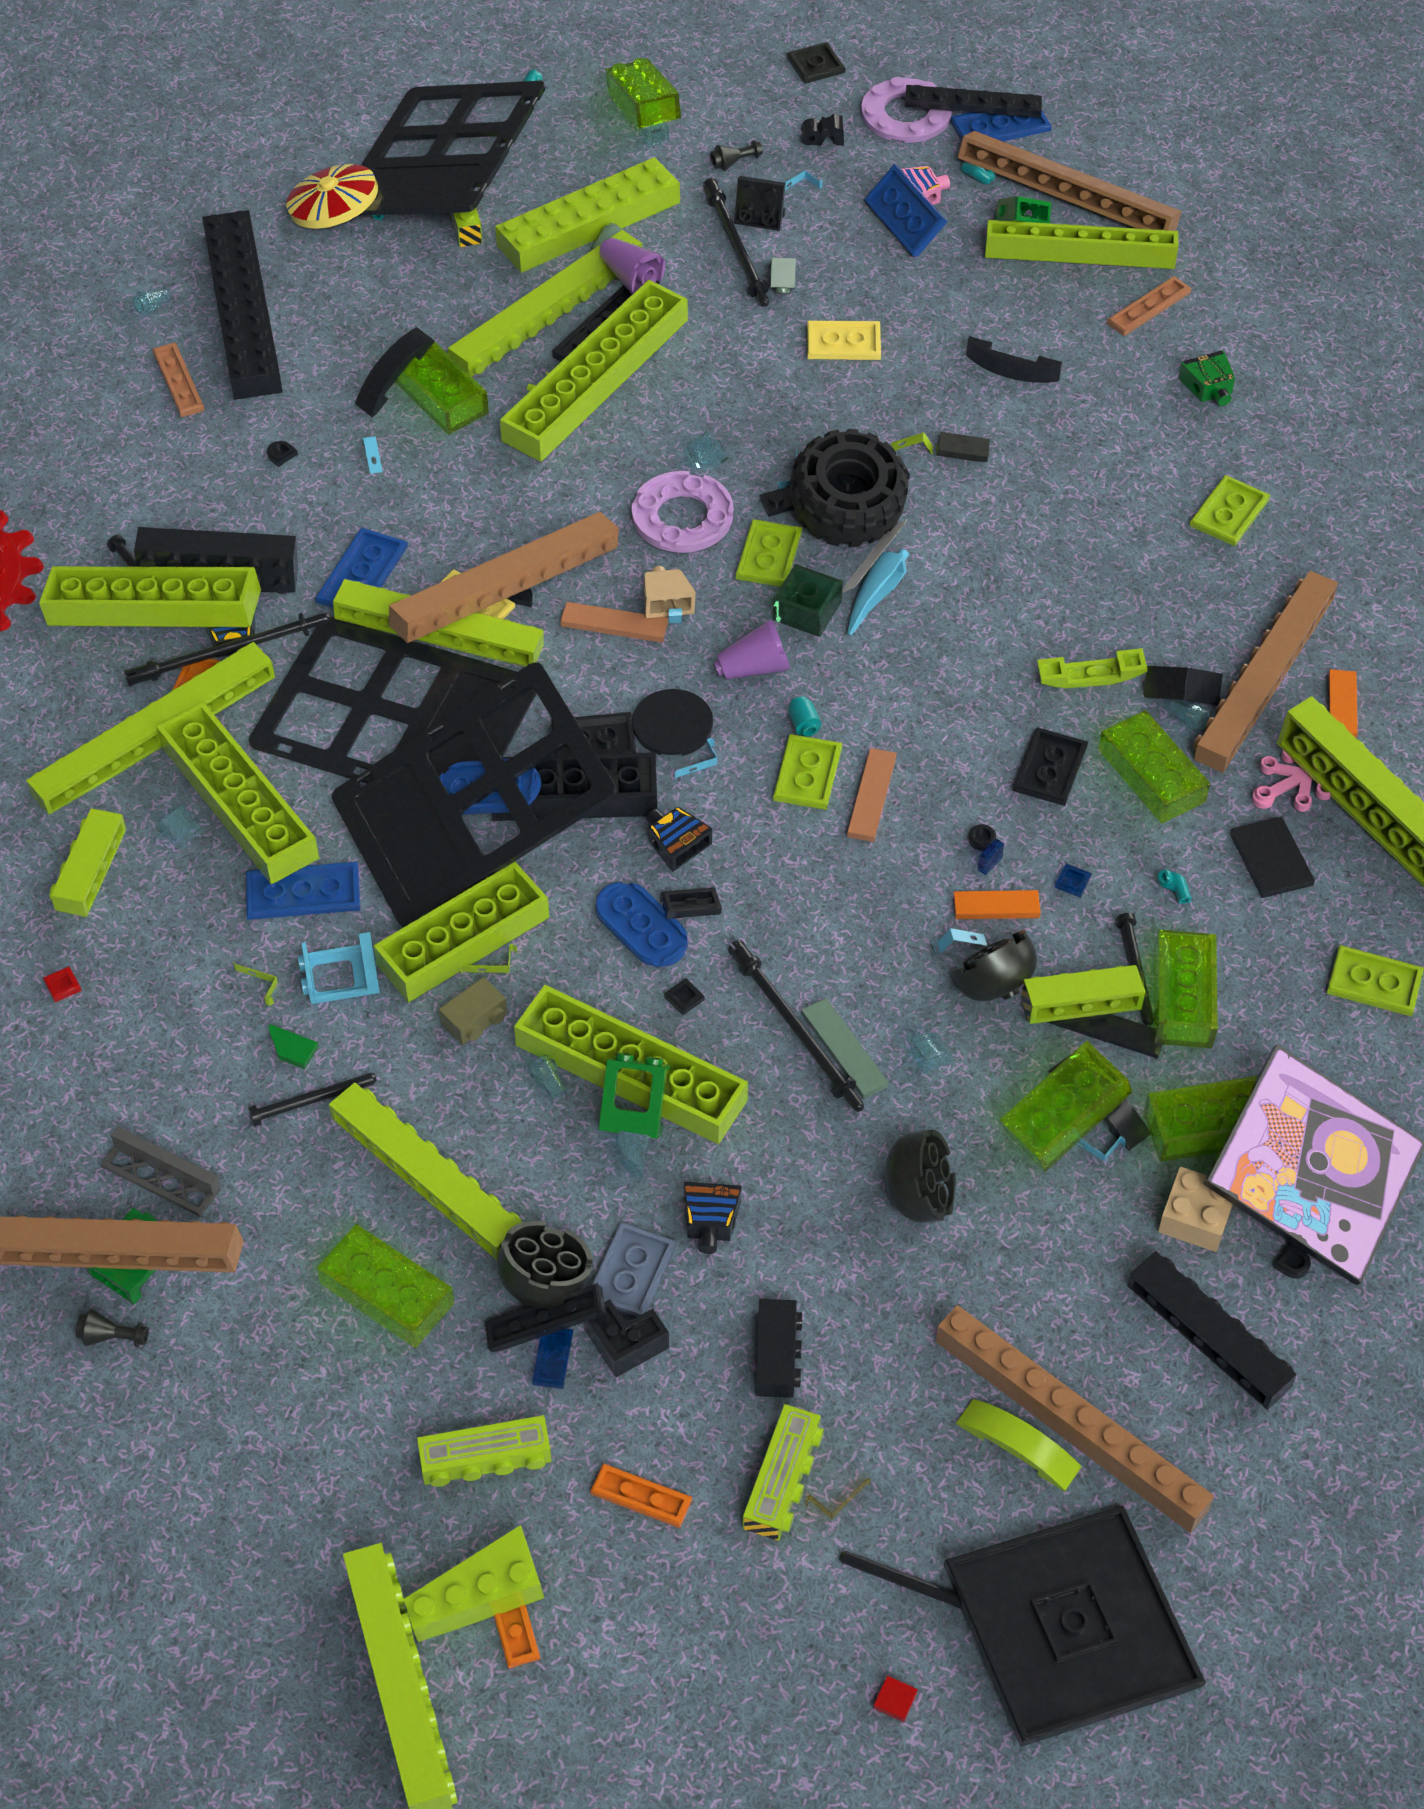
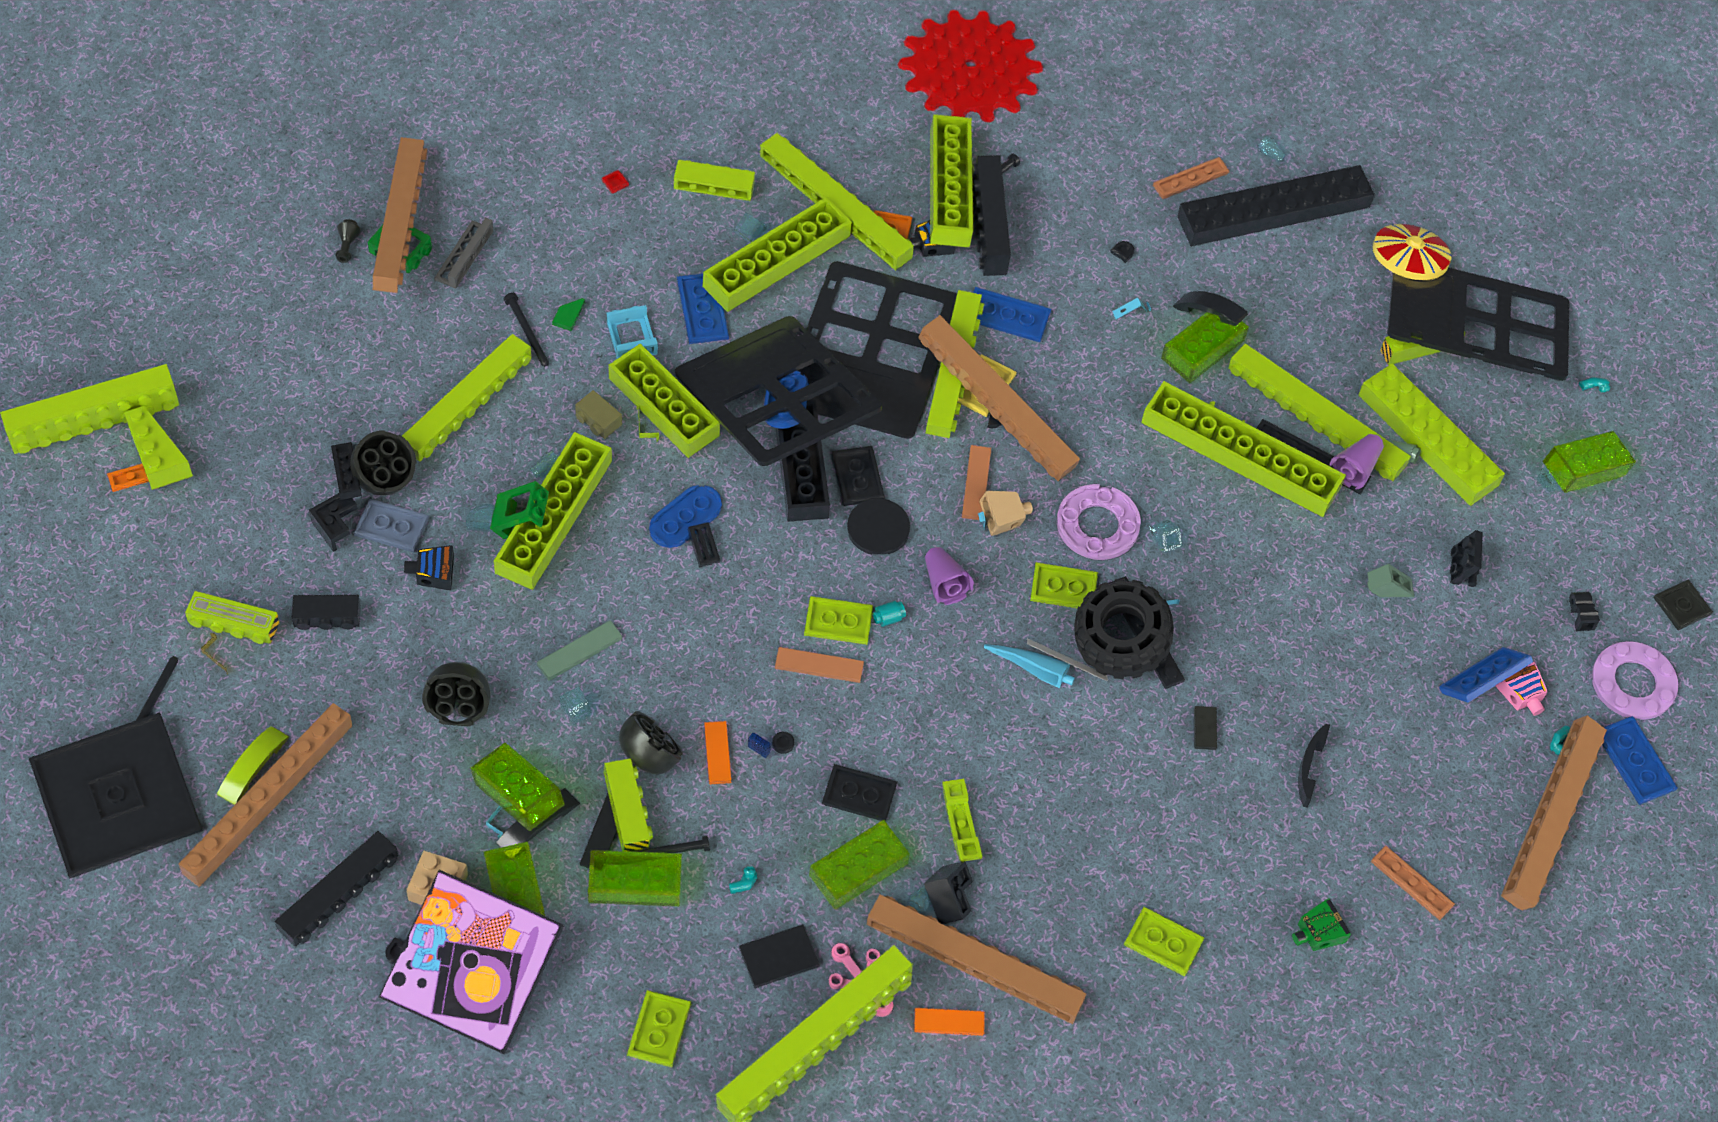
camera: 80 degrees right, 5 degrees up
(153, 670) = (891, 196): black bar -> none
(269, 1001) = (618, 298): lime piece -> none
(385, 1285) = (375, 381): clear neon green brick -> none
(484, 1451) = (254, 447): lime brick -> none
(553, 1359) = (320, 483): clear blue tile -> none
(641, 1495) = (222, 540): orange tile -> none
(677, 836) = (763, 531): black torso -> none
(684, 996) = (621, 546): black tile -> none
(711, 762) = (839, 551): medium azure piece -> none
(717, 198) = (1368, 565): black bar -> none
(726, 156) = (1532, 534): pearl dark grey piece -> none
(751, 966) = (647, 586): black bar -> none
(801, 176) = (1516, 591): medium azure piece -> none
(807, 600) = (1006, 609): clear green brick -> none
(844, 340) = (1321, 635): light yellow tile -> none
(895, 1698) = (70, 690): red tile -> none
(921, 437) = (1203, 688): lime piece -> none
(959, 935) = (681, 726): medium azure piece -> none
(973, 101) = (1651, 731): black plate -> none
(1015, 208) = (1499, 768): green torso -> none
(1073, 880) = (745, 807): clear blue tile -> none
(1081, 244) = (1472, 821): lime brick -> none

